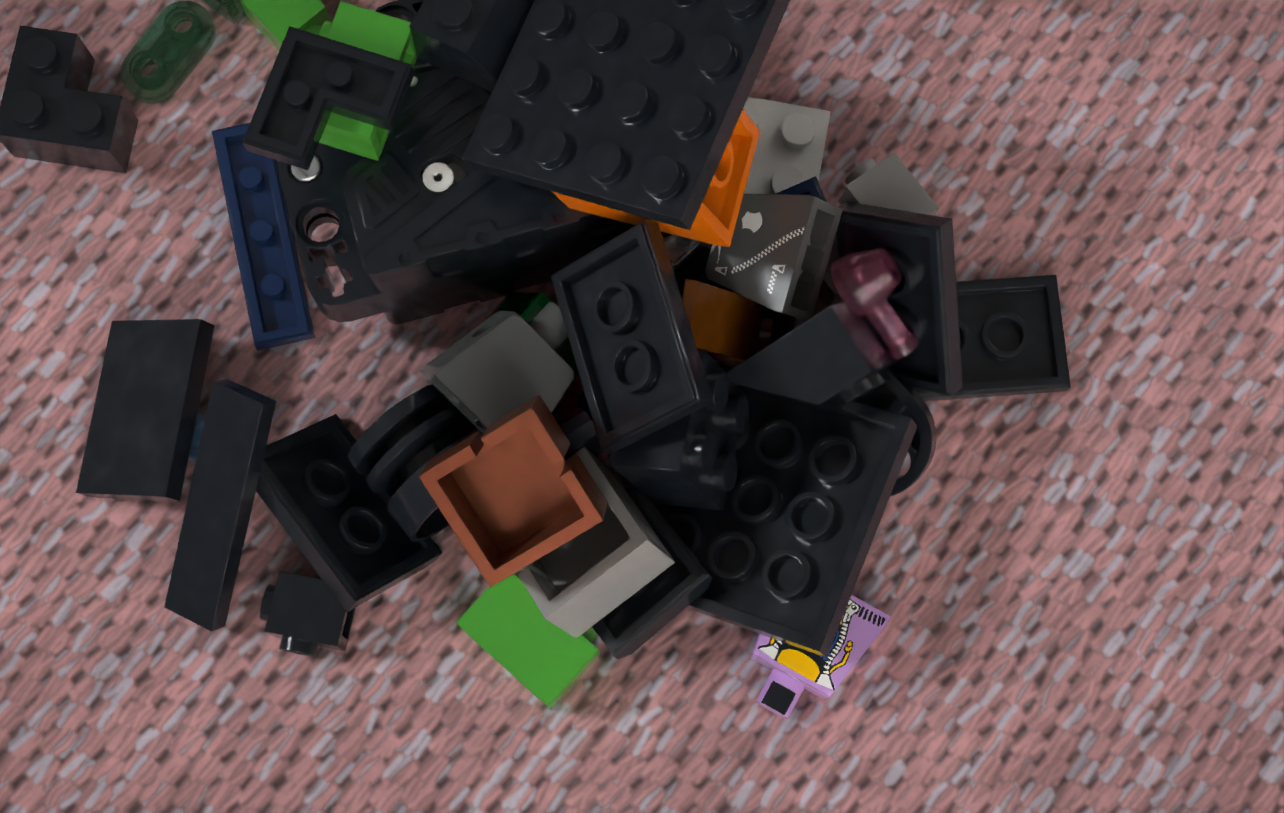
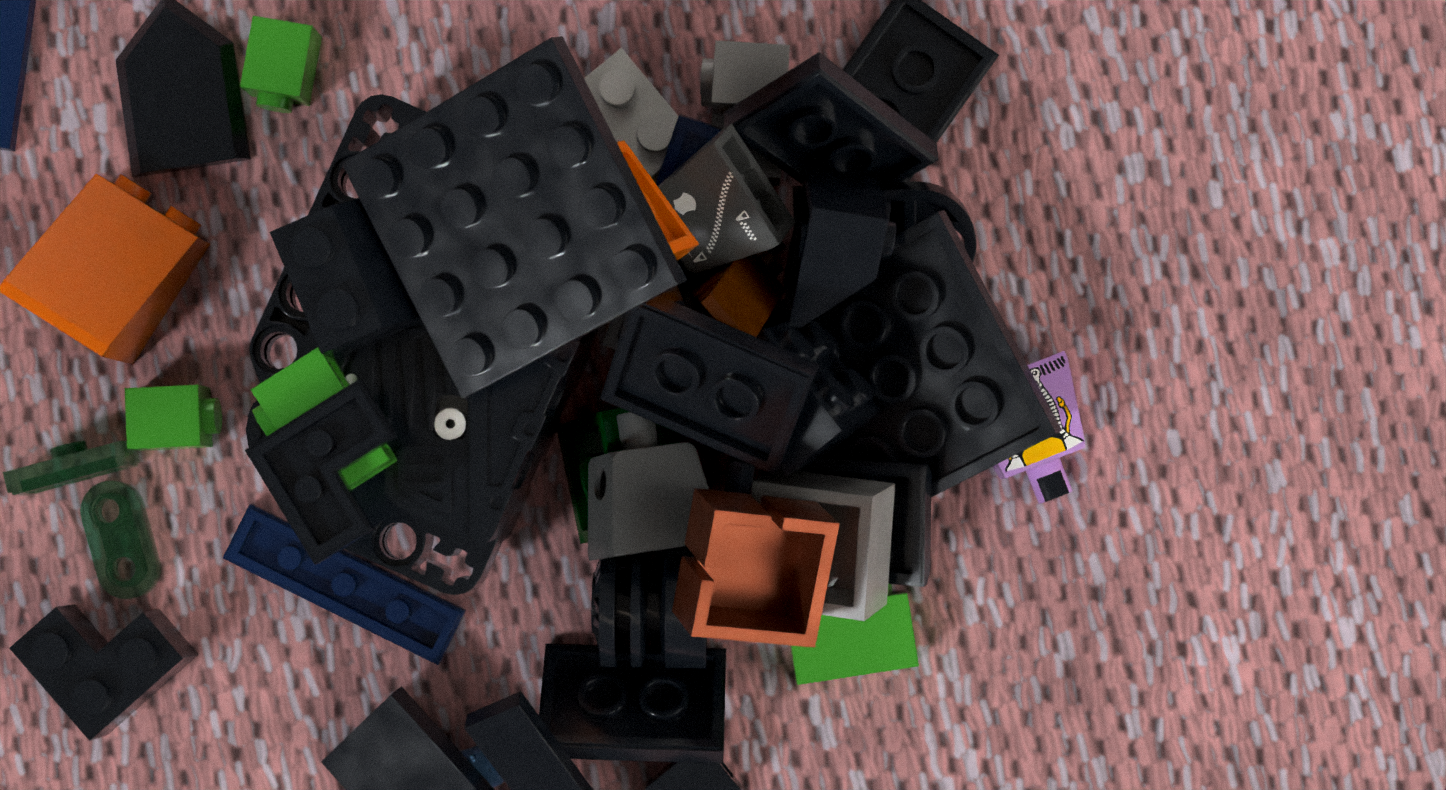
camera: 45 degrees left, 10 degrees up
(864, 283) = (806, 158): clear pink bar -> none

